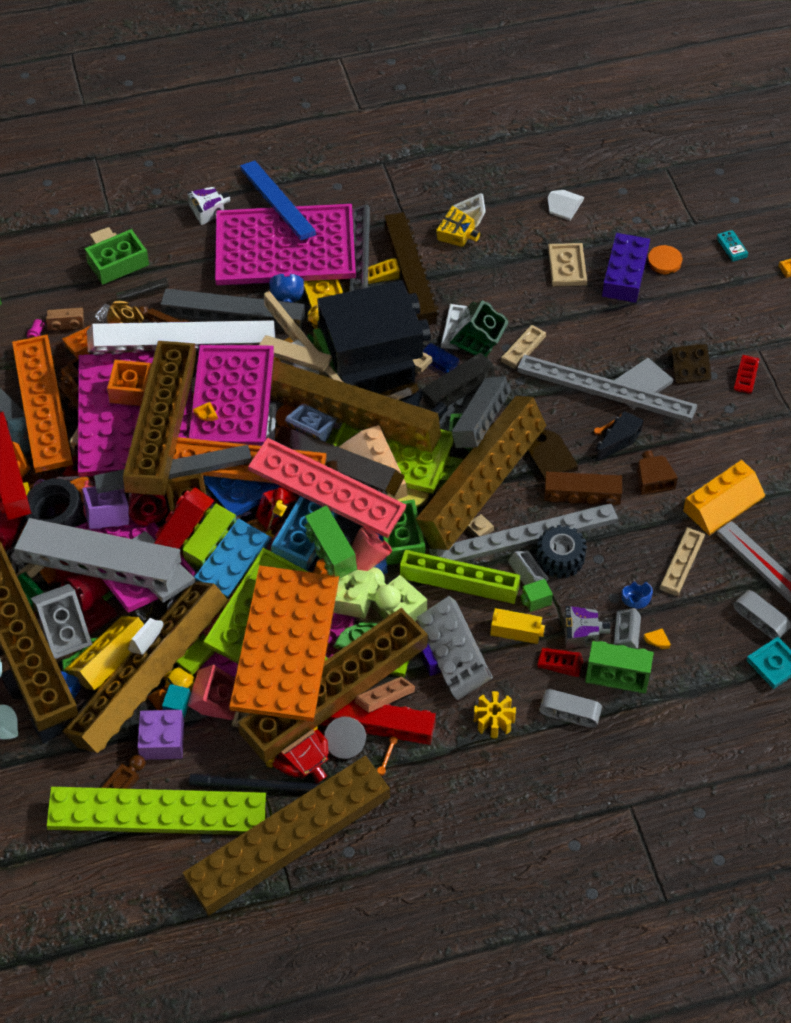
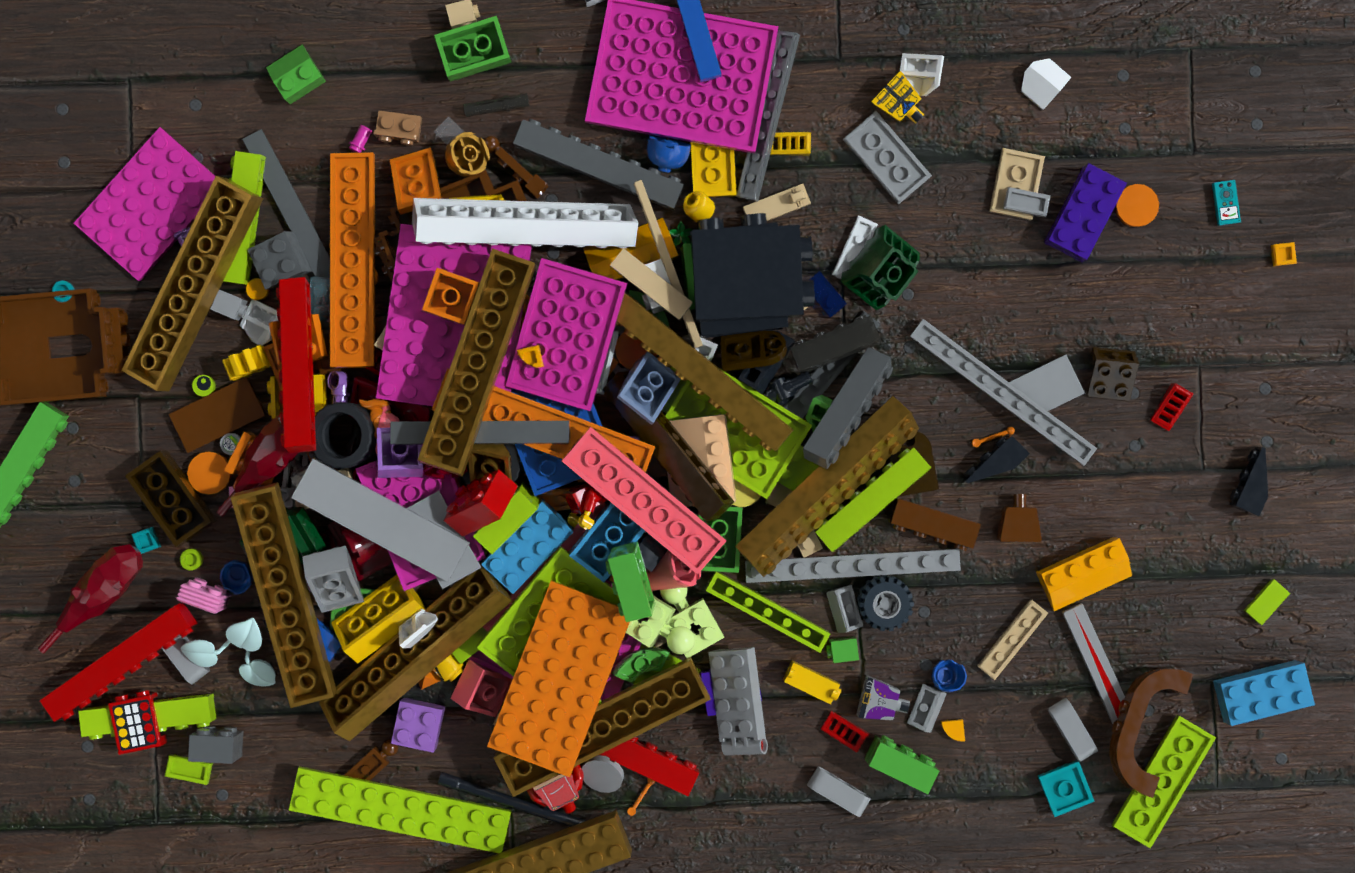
camera: 15 degrees right, 35 degrees up
(177, 699) = (440, 690): teal panel -> none
(384, 694) = (654, 737): nougat tile -> none
(410, 264) = (824, 148): dark brown brick -> none
(461, 267) = (887, 157): none -> light grey tile
(504, 714) = (763, 787): yellow gear -> none
(523, 346) = (927, 300): tan tile -> none
(524, 480) = (873, 499): none -> lime brick
(578, 269) = (1026, 202): none -> light grey tile

